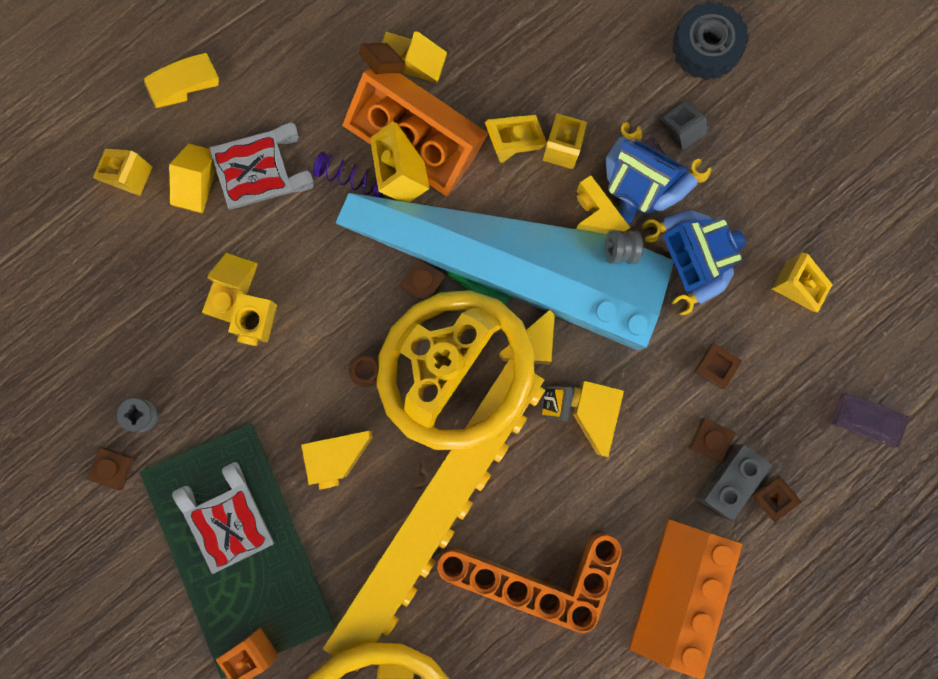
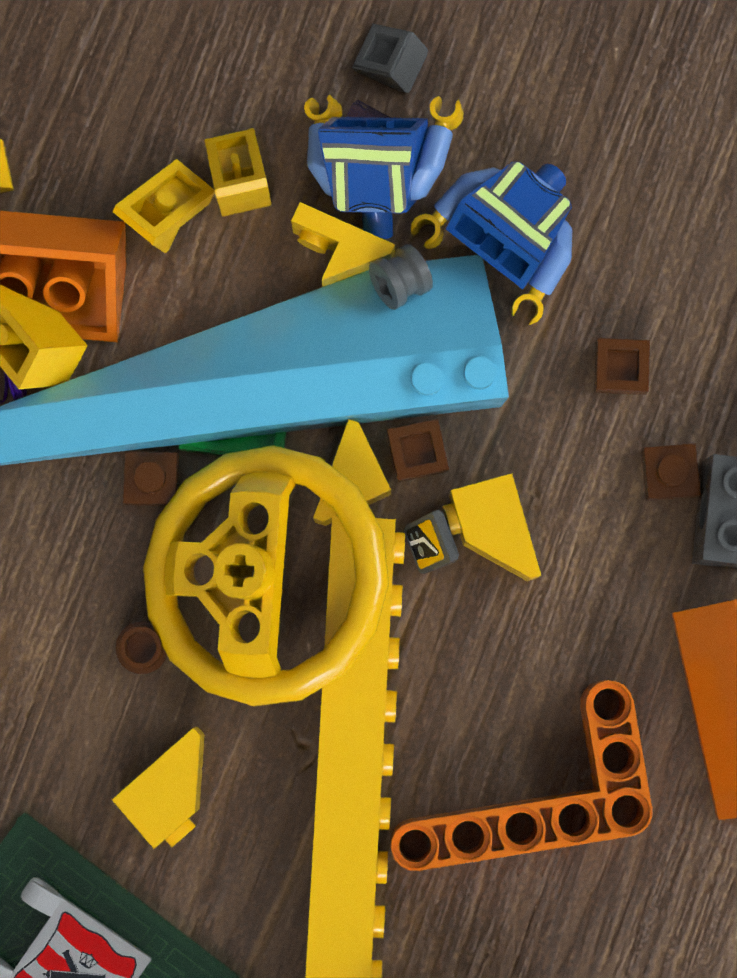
camera: 30 degrees left, 0 degrees up
(577, 348) = (417, 450): none -> reddish brown plate
(803, 282) = (674, 186): yellow slope -> none

